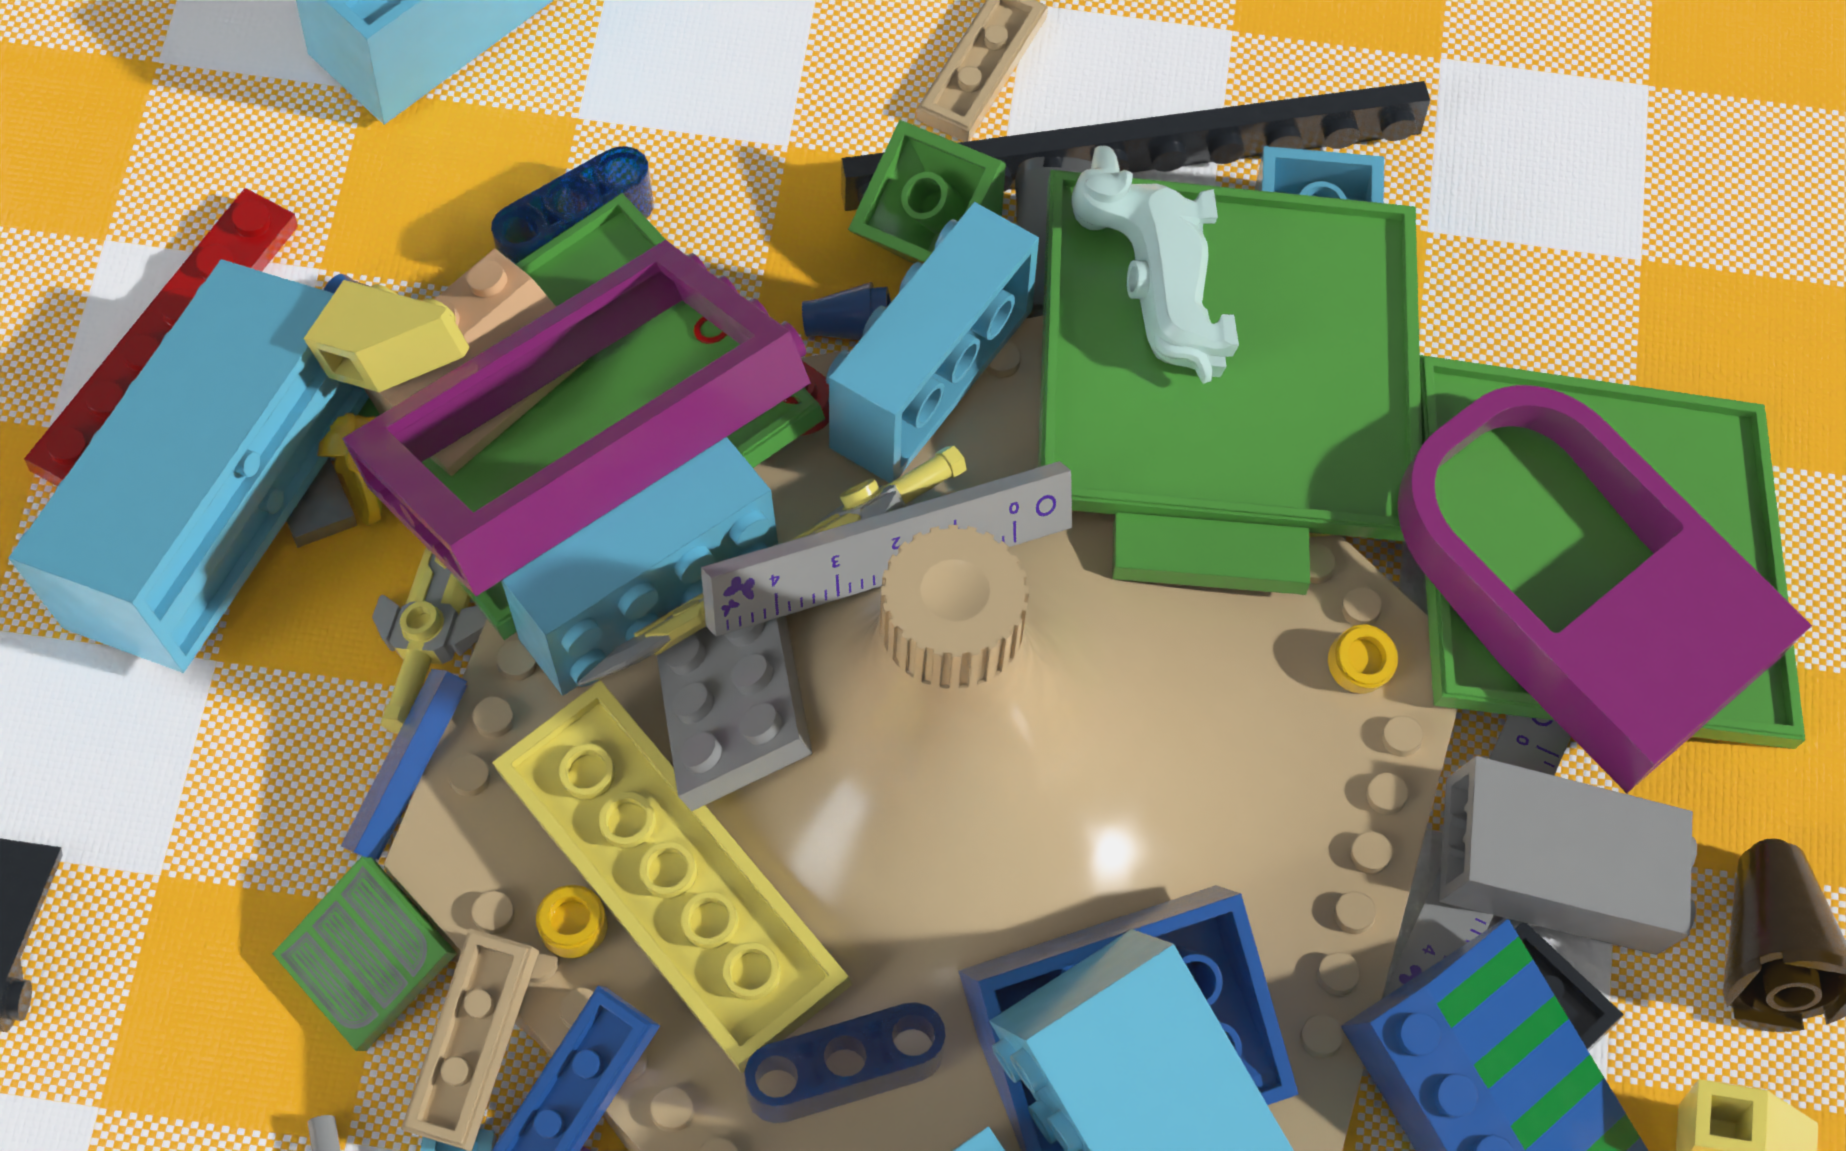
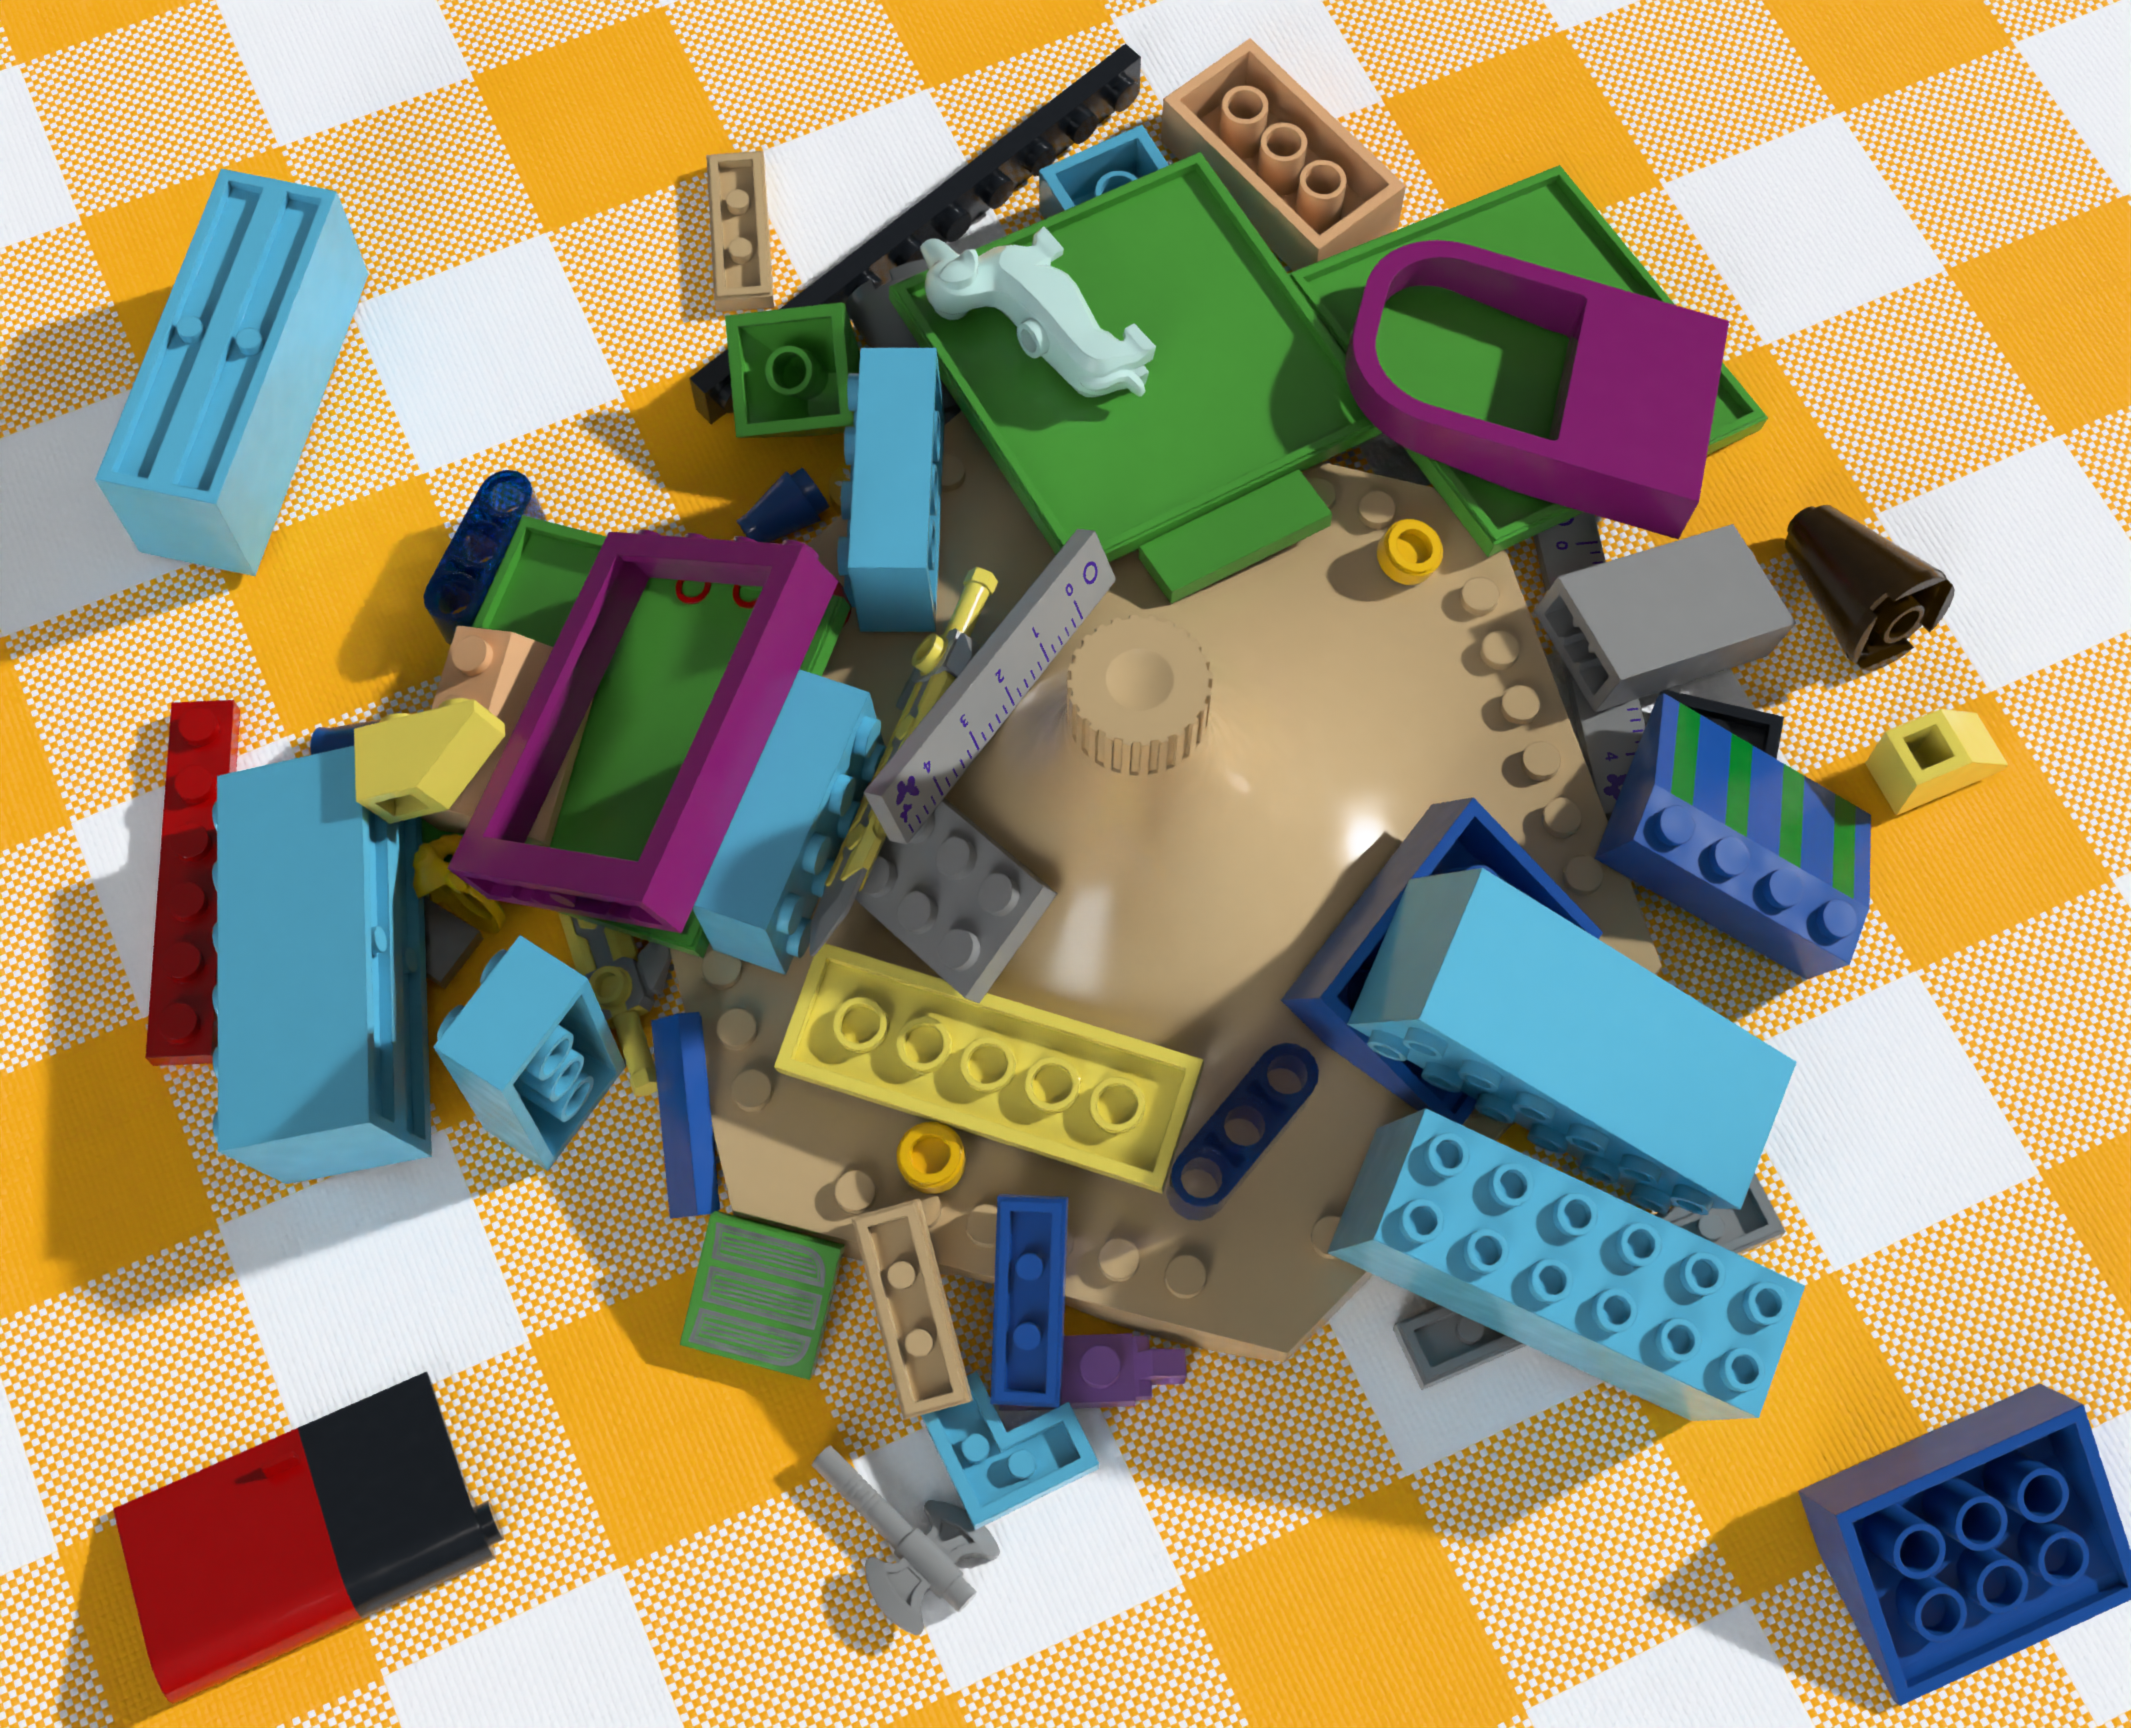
camera: 30 degrees left, 5 degrees up
(303, 628) = (530, 1051): none -> medium azure brick
(1497, 255) = (1282, 158): none -> light nougat brick

